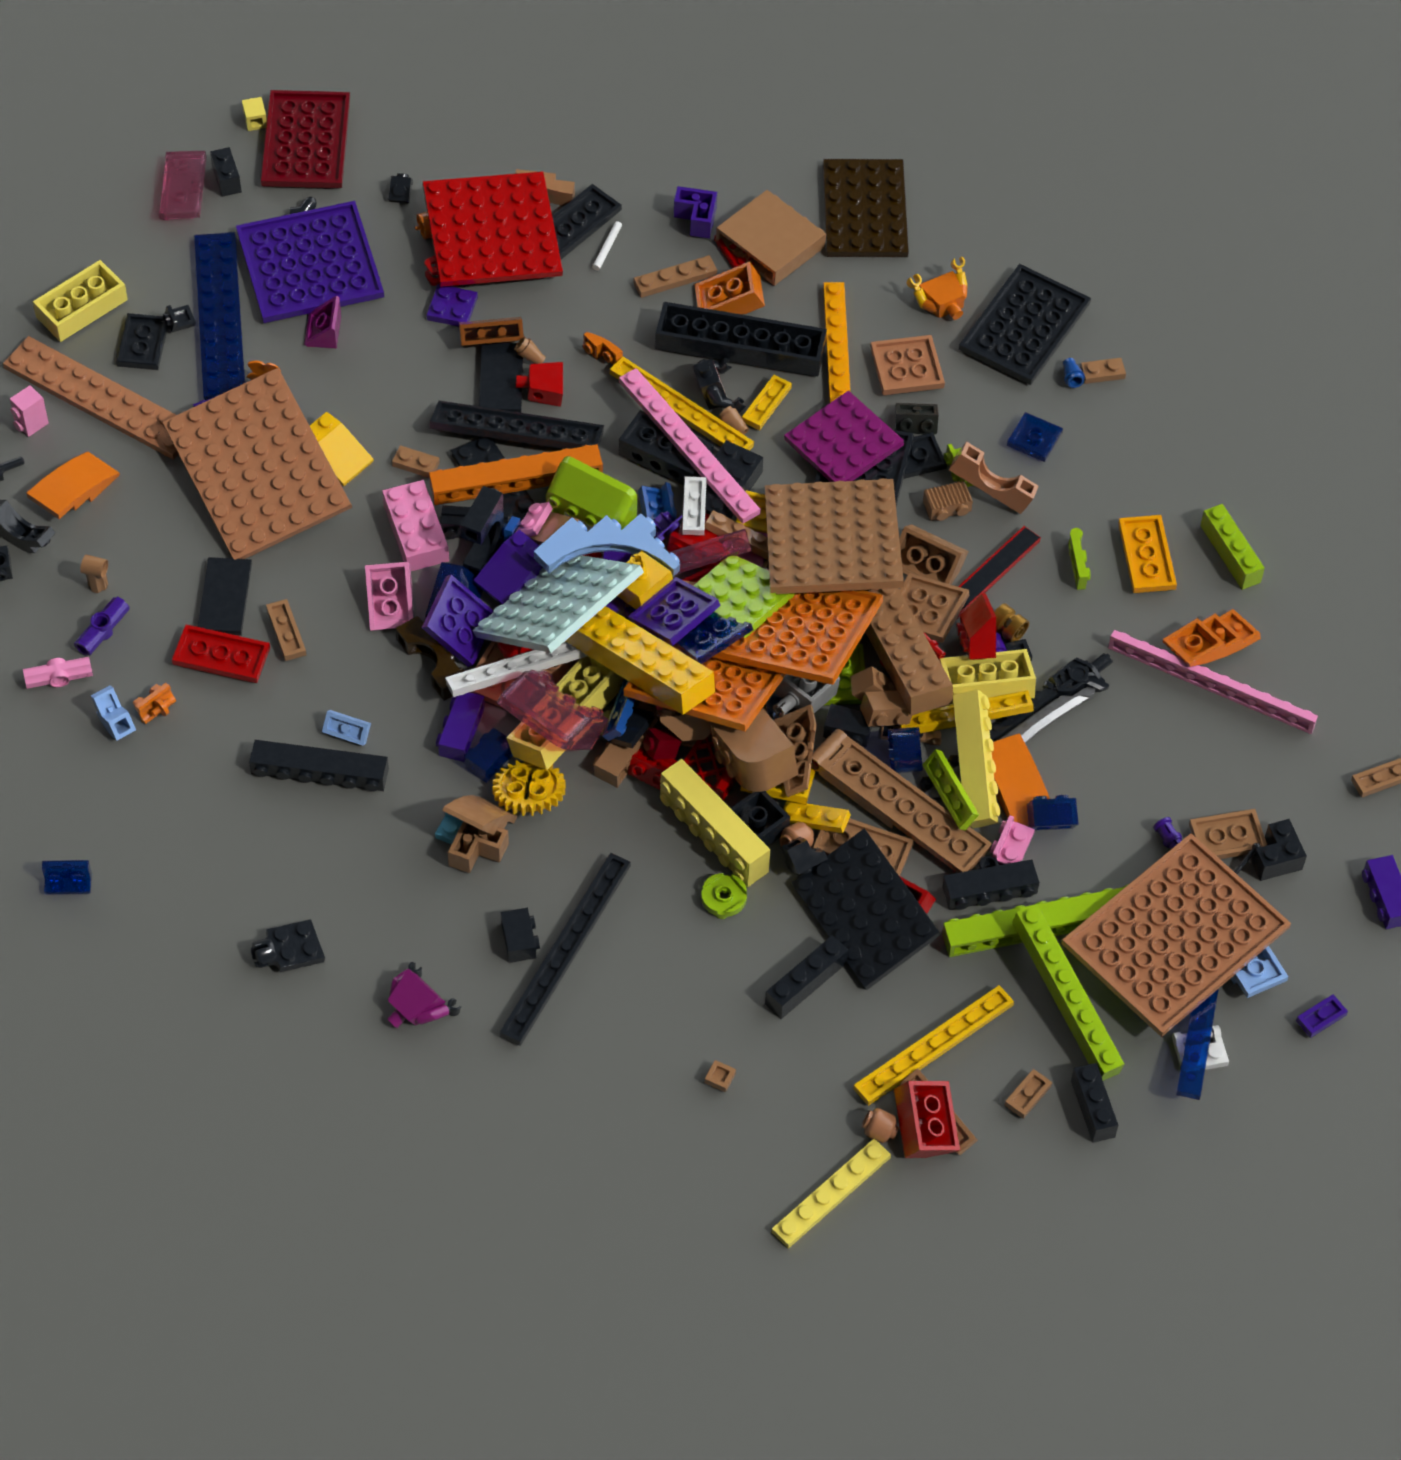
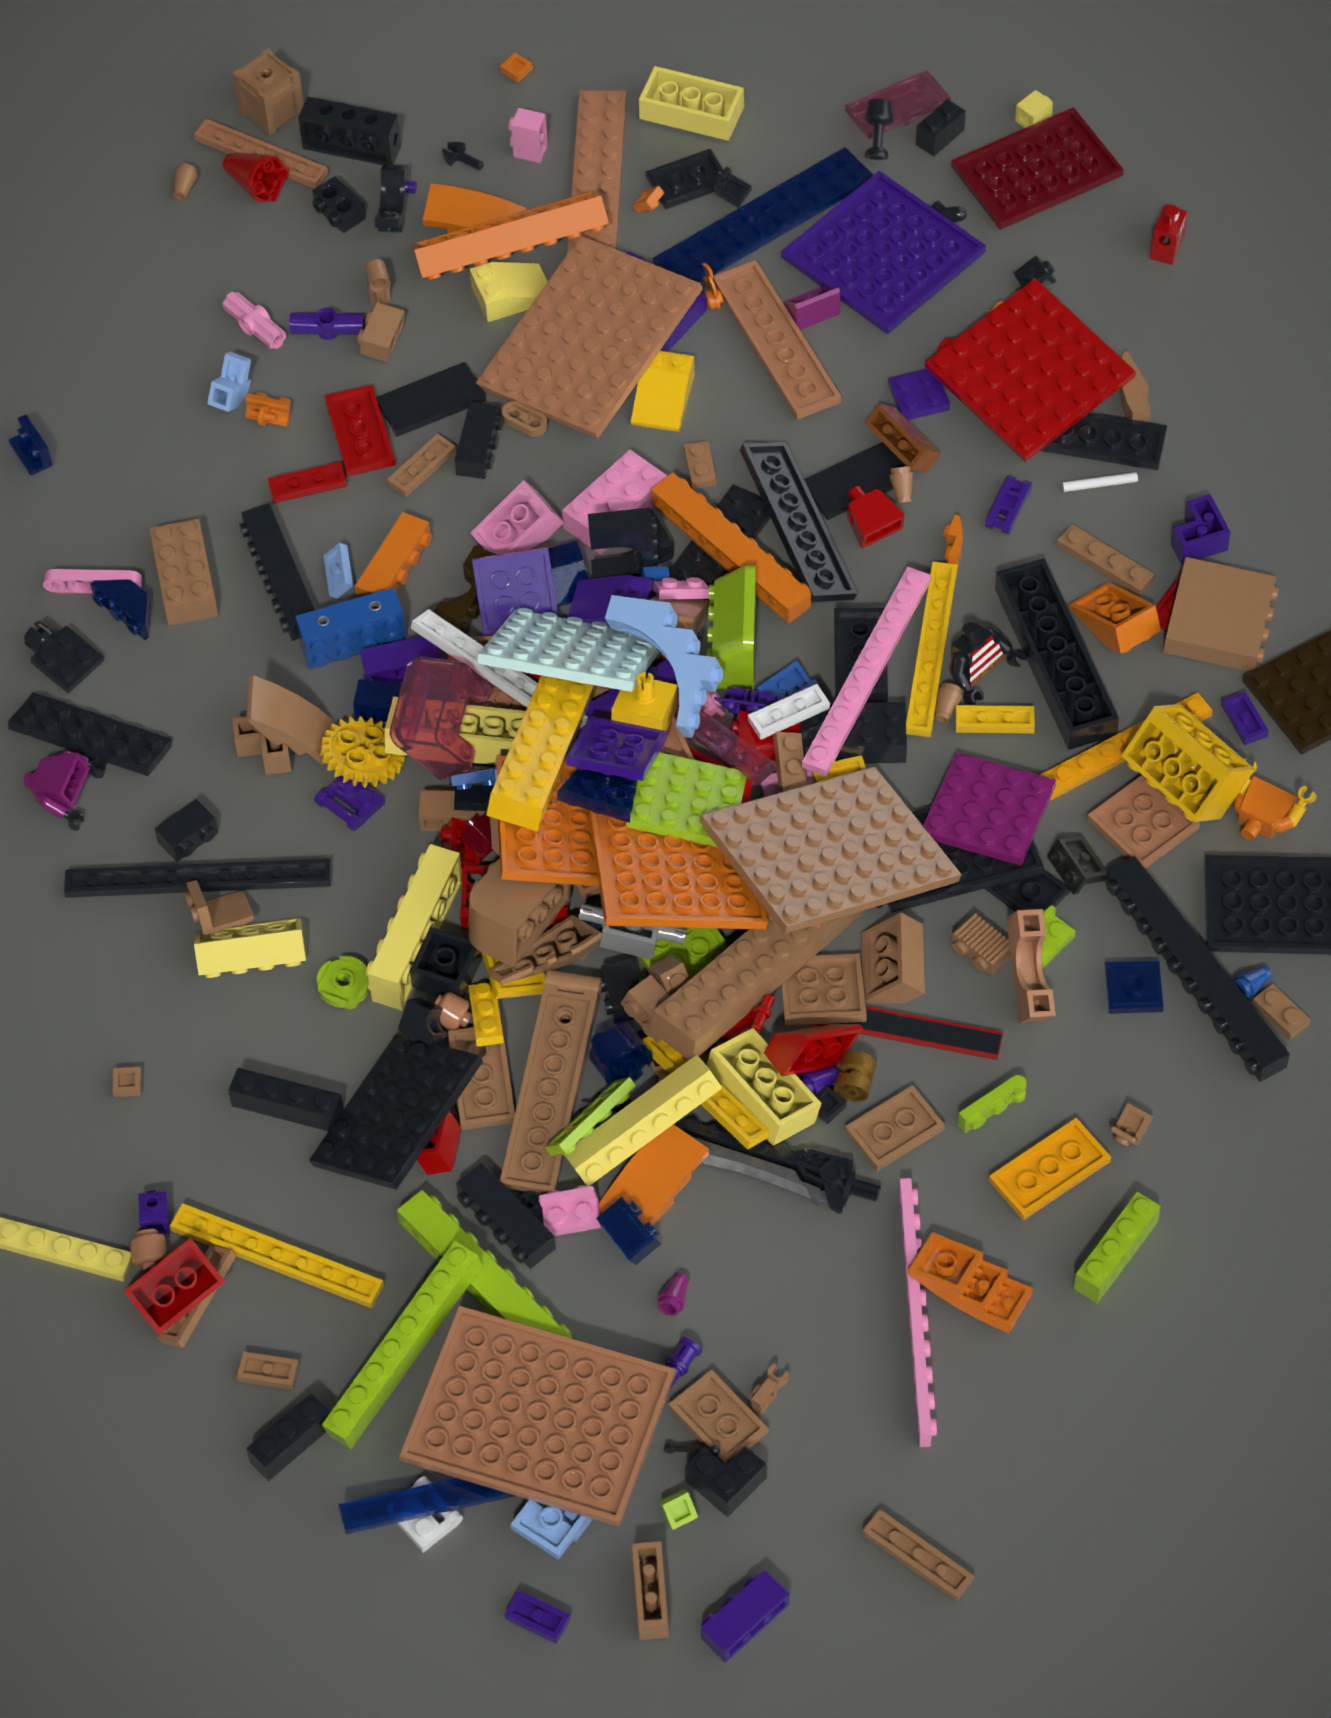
camera: 65 degrees right, 0 degrees up
(122, 466) = (510, 234): none -> orange brick
(141, 594) = (381, 332): none -> medium nougat brick
(146, 372) = (648, 199): none -> orange plate
(160, 498) = (506, 287): none -> light yellow slope
(193, 195) = (879, 114): none -> black piece
(232, 894) = (66, 579): none -> bright pink beam
(245, 710) = (307, 482): none -> red plate
(272, 828) = (183, 572): none -> medium nougat brick
(274, 881) = (125, 603): none -> clear blue slope
(291, 583) = (478, 440): none -> black brick
(292, 546) = (525, 420): none -> medium nougat plate
(343, 360) = (777, 340): none -> nougat plate
(364, 688) = (395, 556): none -> orange brick
(380, 960) = (90, 734): none -> black plate
(414, 740) = (350, 627): none -> blue piece
(429, 96) = (1172, 224): none -> red torso
(566, 811) = (360, 799): none -> dark purple plate
(590, 303) = (1008, 504): none -> dark purple plate
(610, 944) = (218, 912): none -> medium nougat bracket
(653, 939) = (250, 947): none -> light yellow slope
(849, 1107) = (154, 1211): none -> dark purple brick
(862, 268) = (1244, 718): none -> dark purple plate
(890, 297) = (1187, 763): none -> yellow brick
(1043, 395) = (1197, 969): none -> black brick
(1061, 623) = (894, 1128): none -> medium nougat plate
(1115, 814) = (673, 1296): none -> magenta cone
(1142, 492) = (1131, 1125): none -> medium nougat bracket
(1226, 797) = (765, 1394): none -> medium nougat plate
(1286, 891) = (678, 1509): none -> lime plate
(1343, 935) = (650, 1590): none -> medium nougat brick

